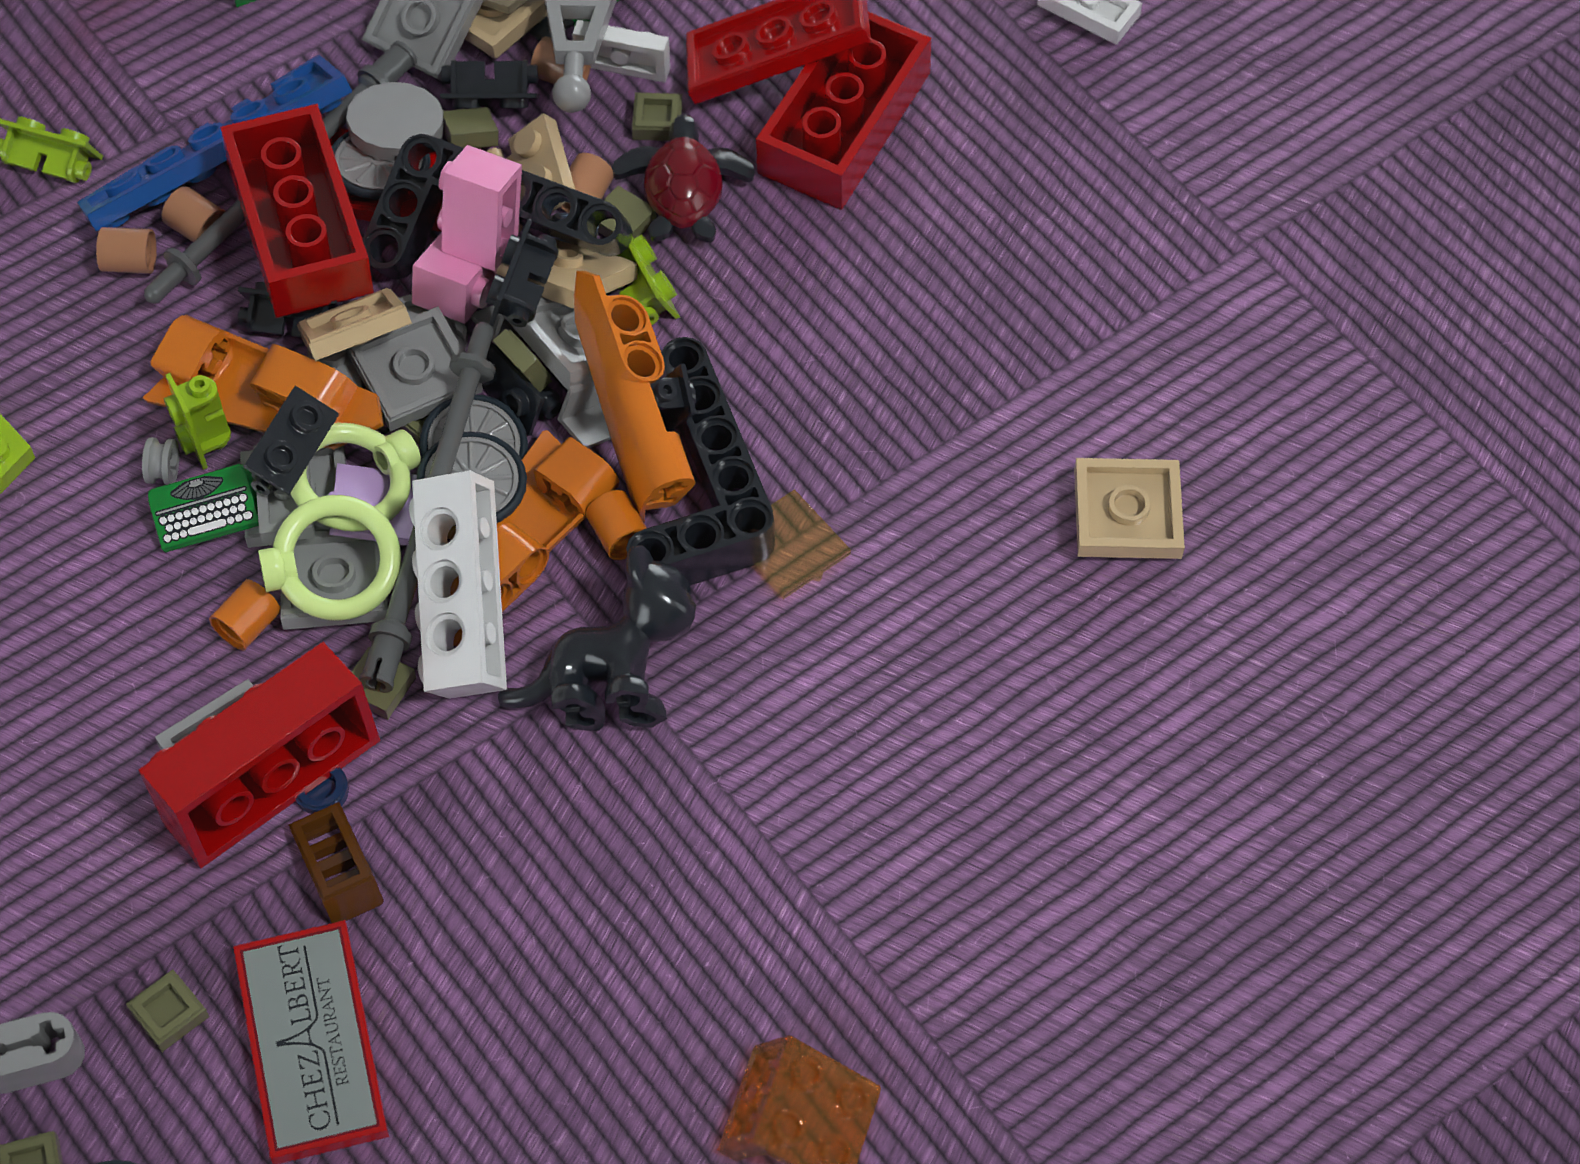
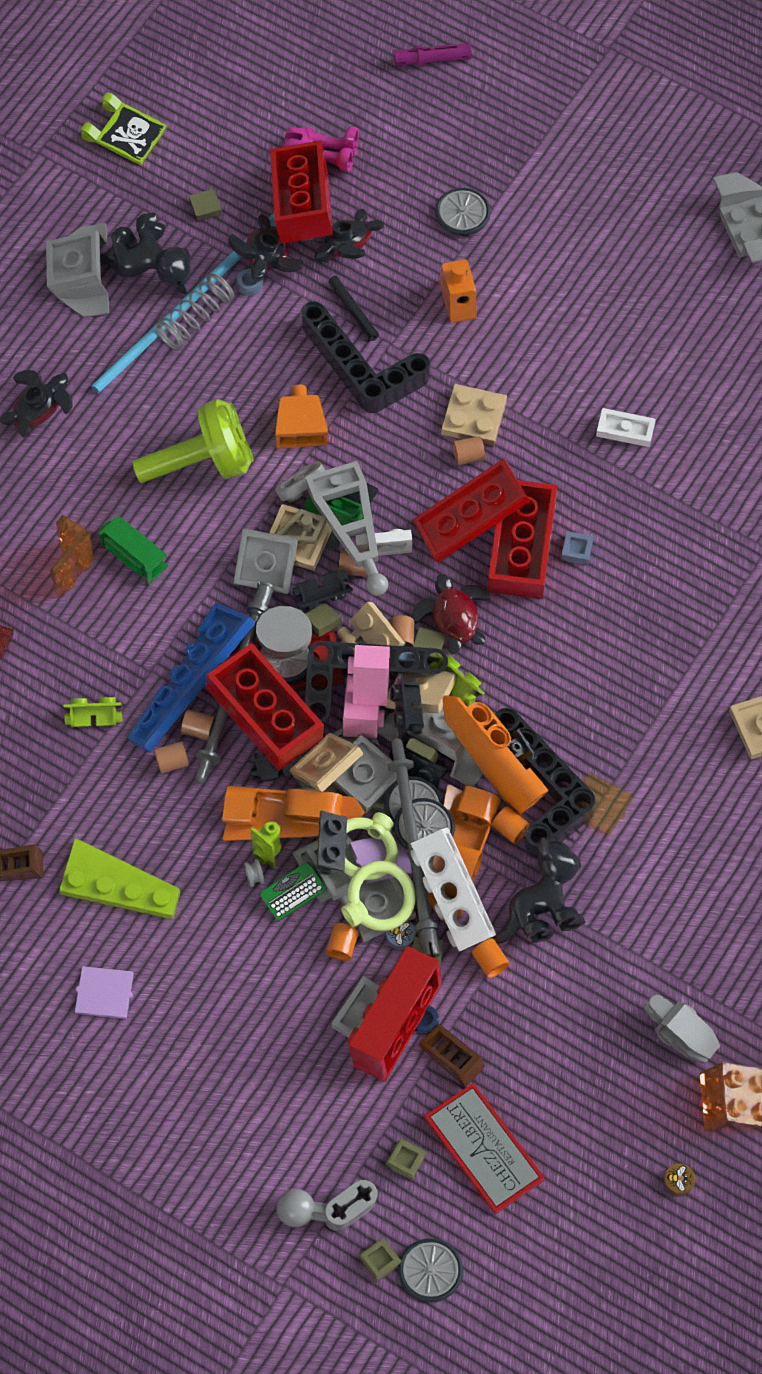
camera: 20 degrees left, 5 degrees up
(348, 638) = (401, 936): none -> tile
(478, 724) = (490, 958): none -> orange beam
(655, 115) = (418, 576): olive tile -> none
(752, 955) = (682, 1028): none -> light grey hinge
(931, 151) = (577, 548): none -> sand blue tile

